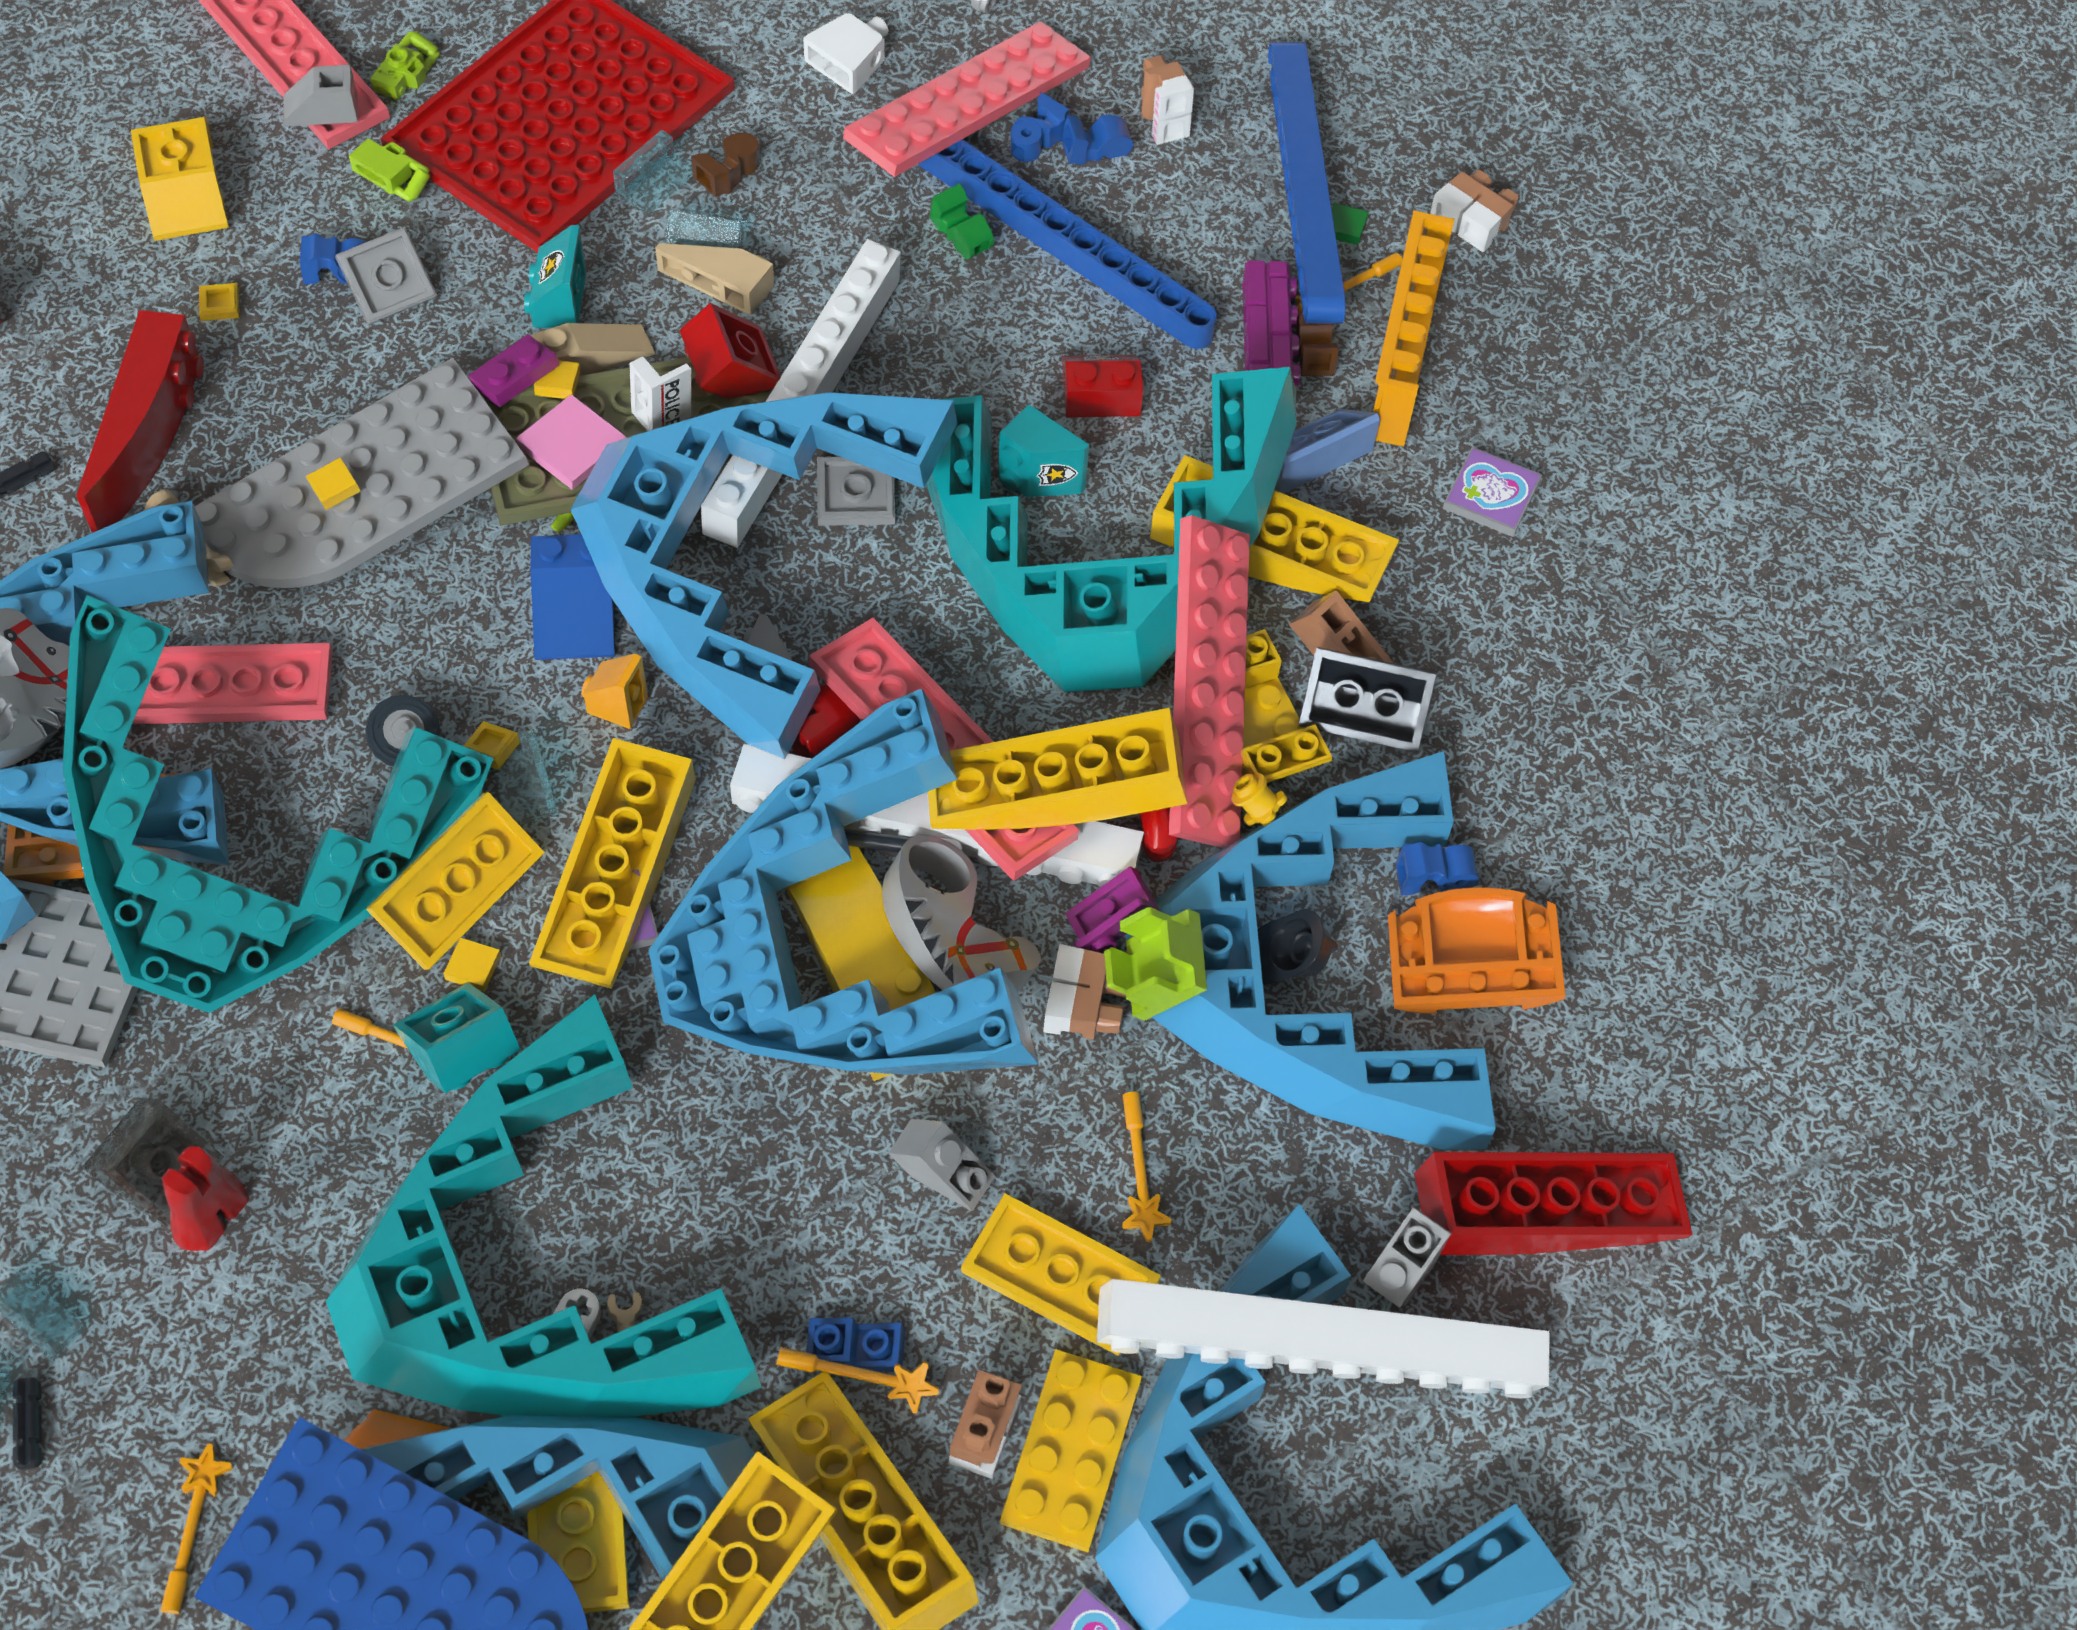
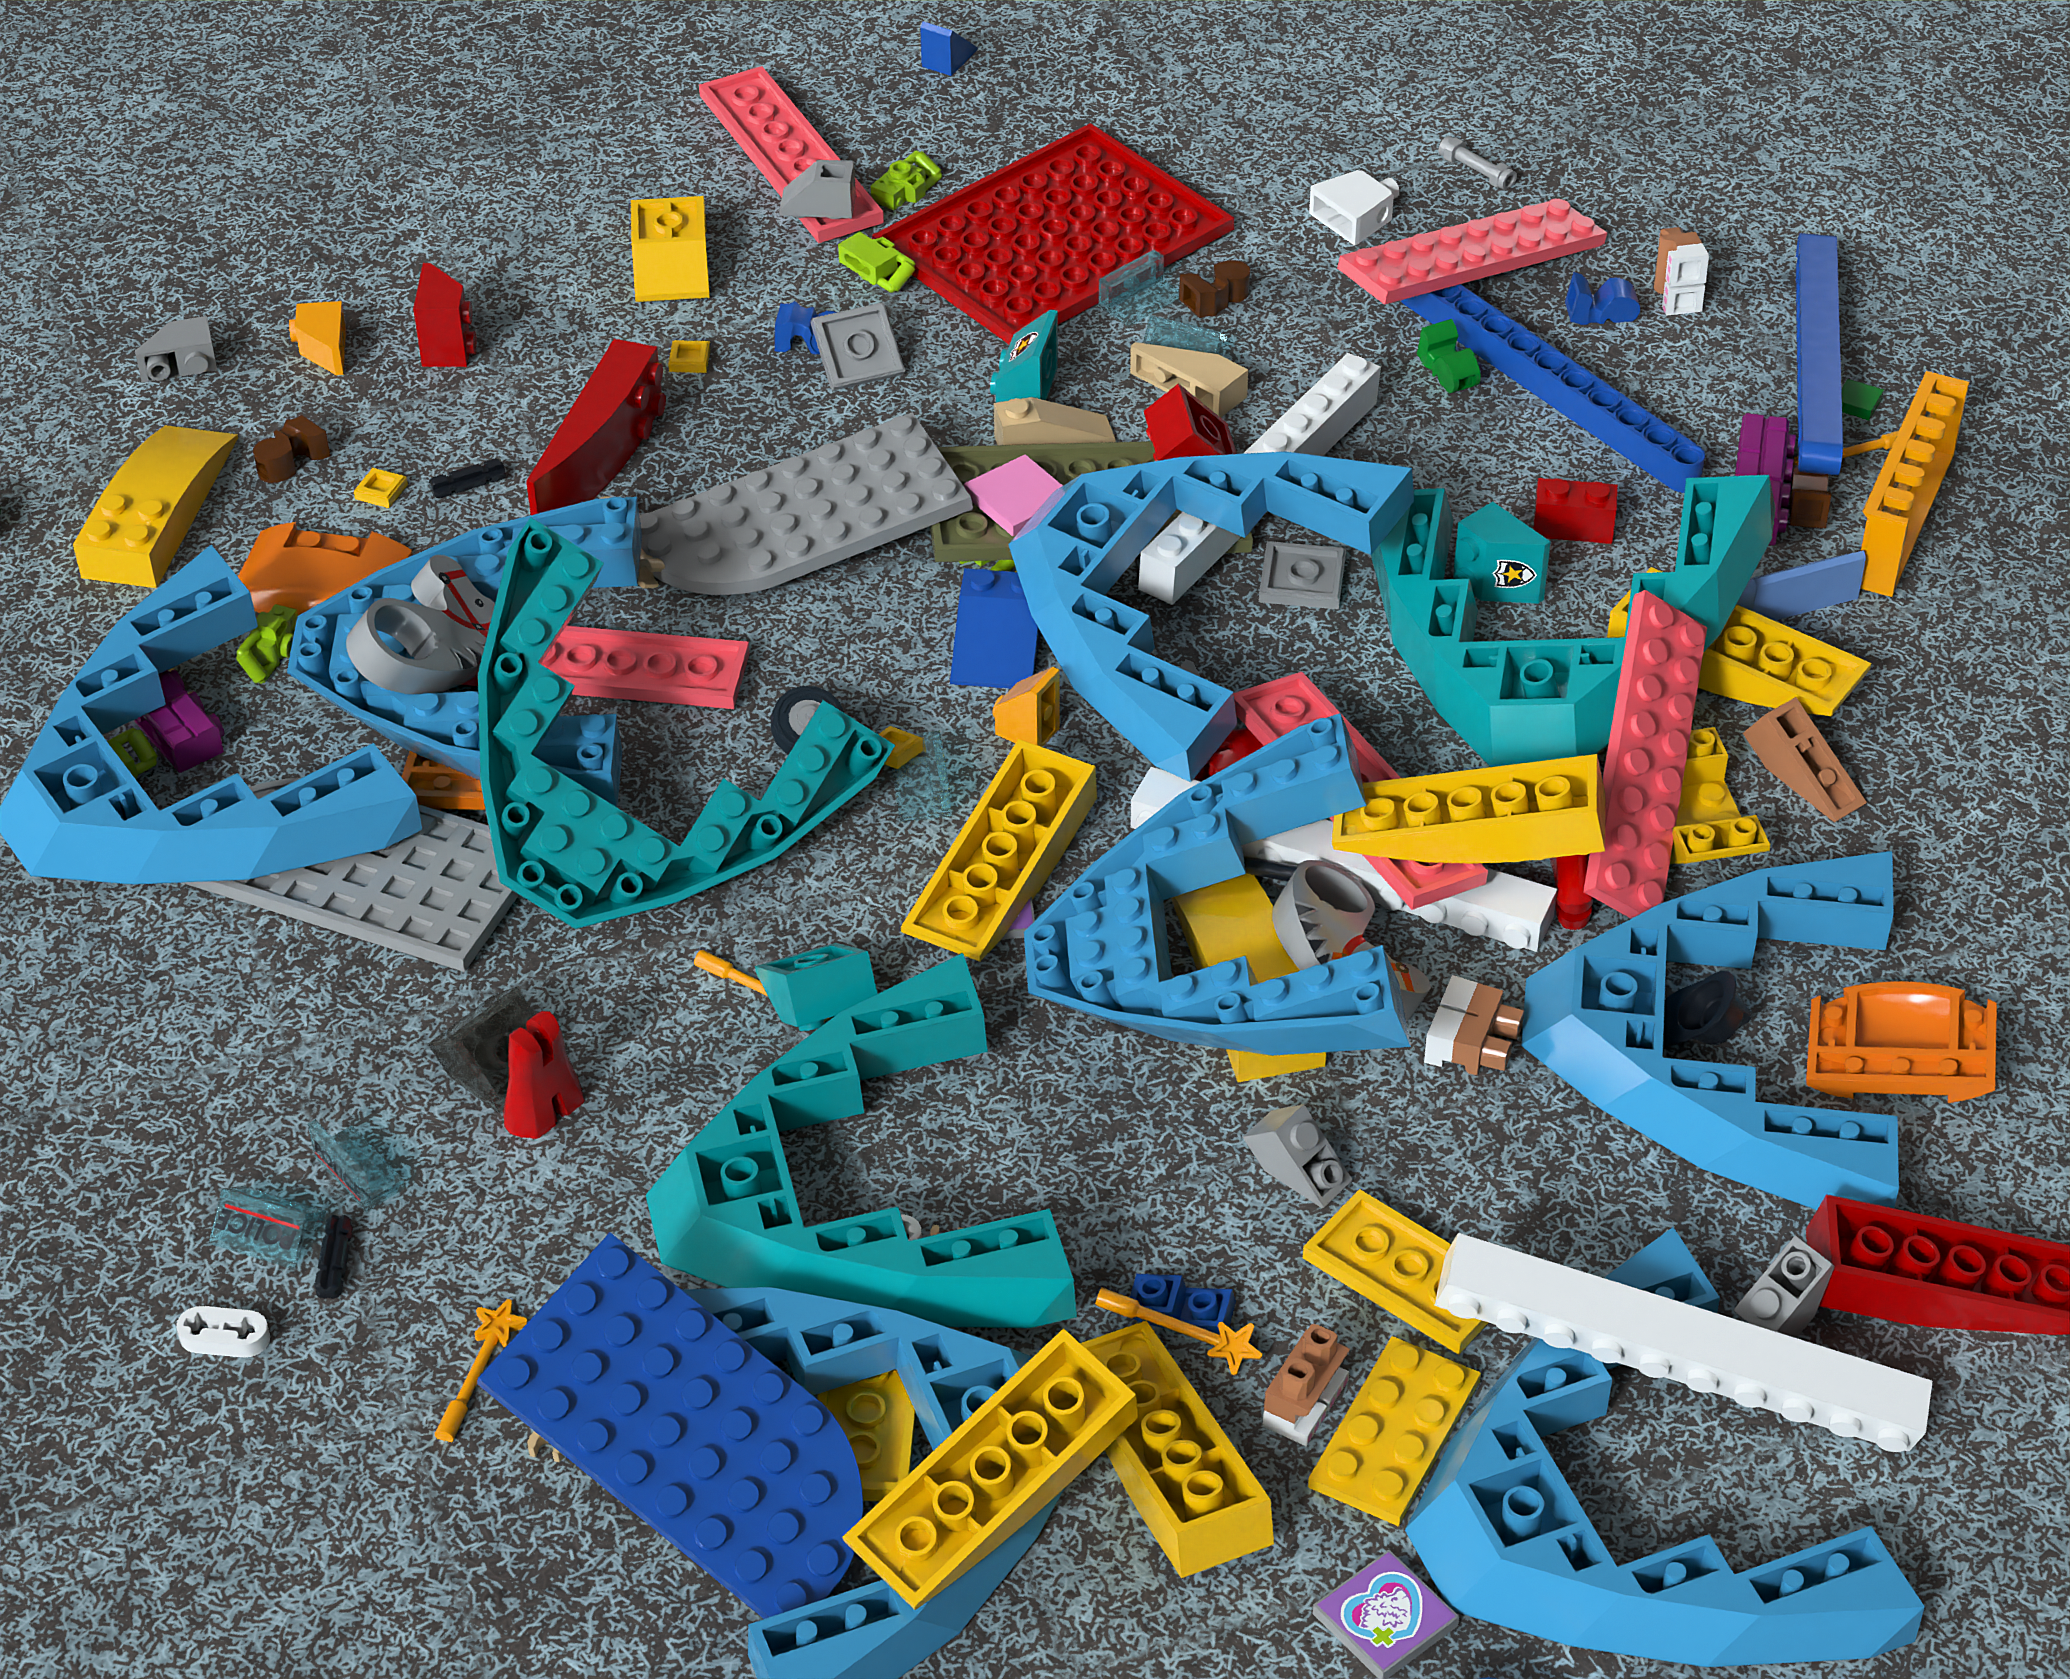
camera: 15 degrees right, 15 degrees down
(333, 483) = (776, 503): yellow tile -> none
(455, 881) = (838, 850): yellow plate -> none
(472, 964) = (842, 927): yellow tile -> none
(513, 370) = (971, 427): magenta bracket -> none
(559, 382) = (1012, 441): yellow tile -> none
(658, 399) = (1111, 449): white panel -> none
(1031, 133) = (1535, 291): blue leg -> none
(1099, 915) = (1514, 954): magenta bracket -> none
(1144, 1211) = (1508, 1231): light orange piece -> none
(1161, 961) = (1559, 998): lime panel -> none
(1257, 799) = (1682, 870): yellow brick -> none
(1367, 699) = (1817, 796): slope -> none
(1448, 866) = (1881, 962): blue leg -> none
(1475, 208) = (2001, 396): hips -> none
(1492, 491) = (1983, 645): tile -> none

